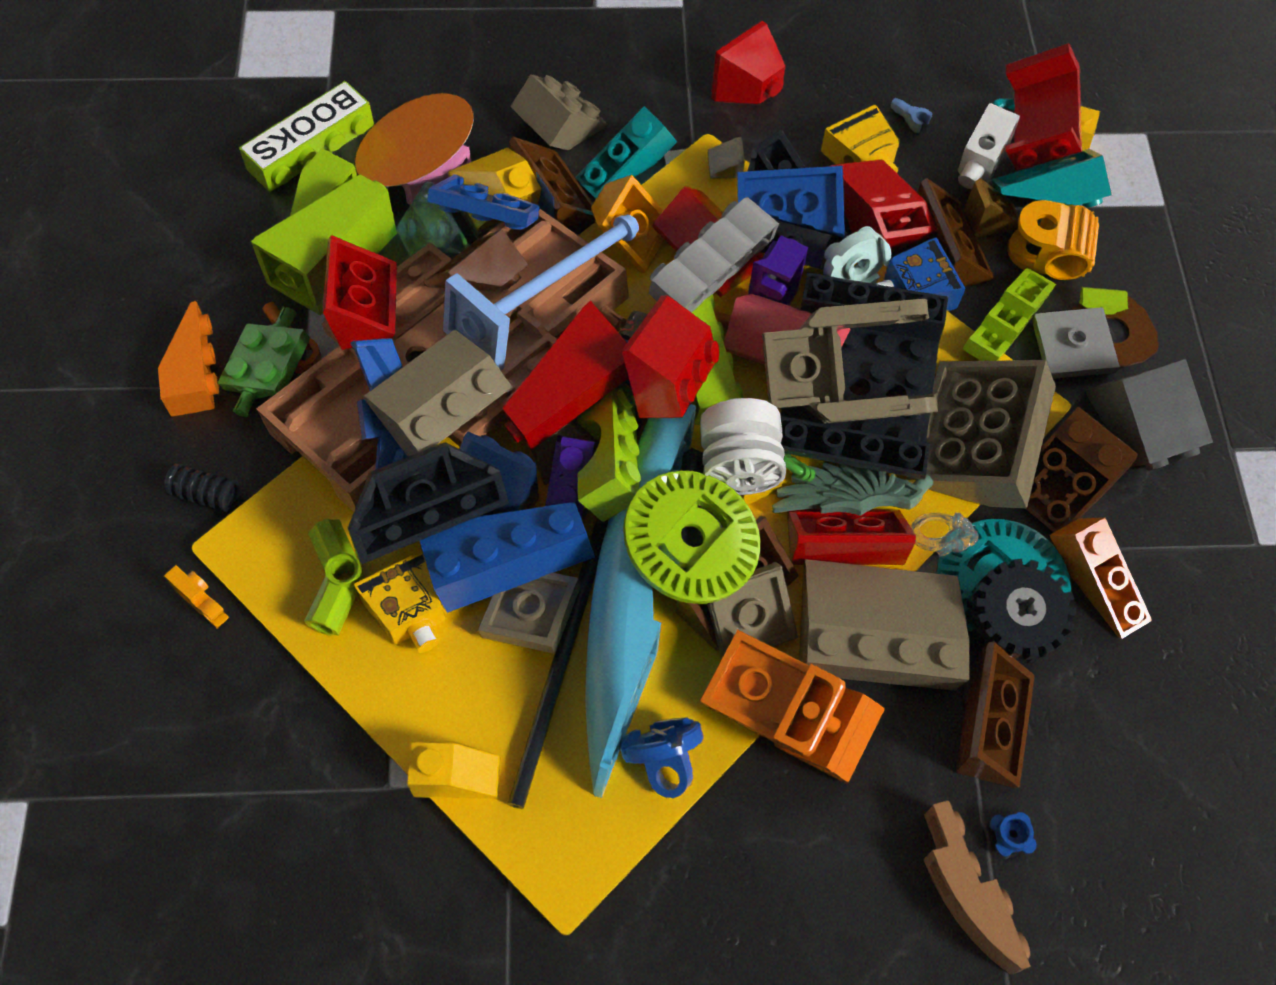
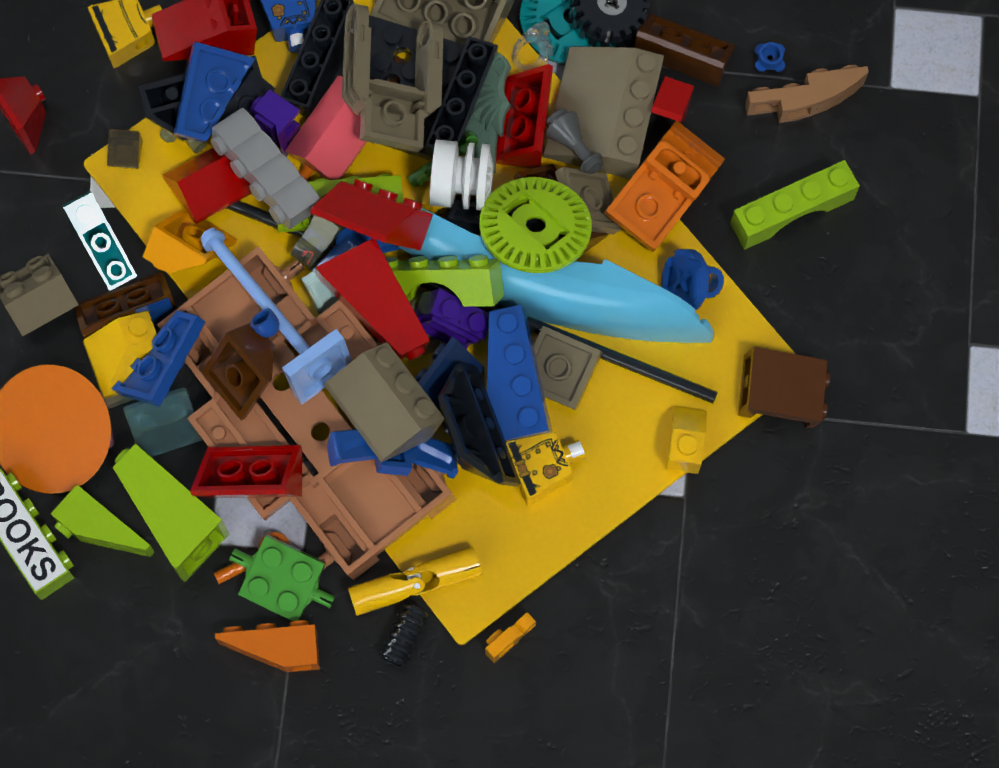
camera: 80 degrees left, 10 degrees up
(257, 481) = (399, 586): none -> yellow piece
(334, 596) = (531, 520): lime piece -> none
(521, 269) = (265, 323): none -> blue hinge
(535, 897) = (784, 386): none -> reddish brown panel
(825, 912) = (817, 192): none -> lime arch
(836, 569) = (565, 129): none -> dark grey piece
(862, 247) = (274, 62): light aqua plate -> none
(907, 700) = (673, 99): none -> red slope

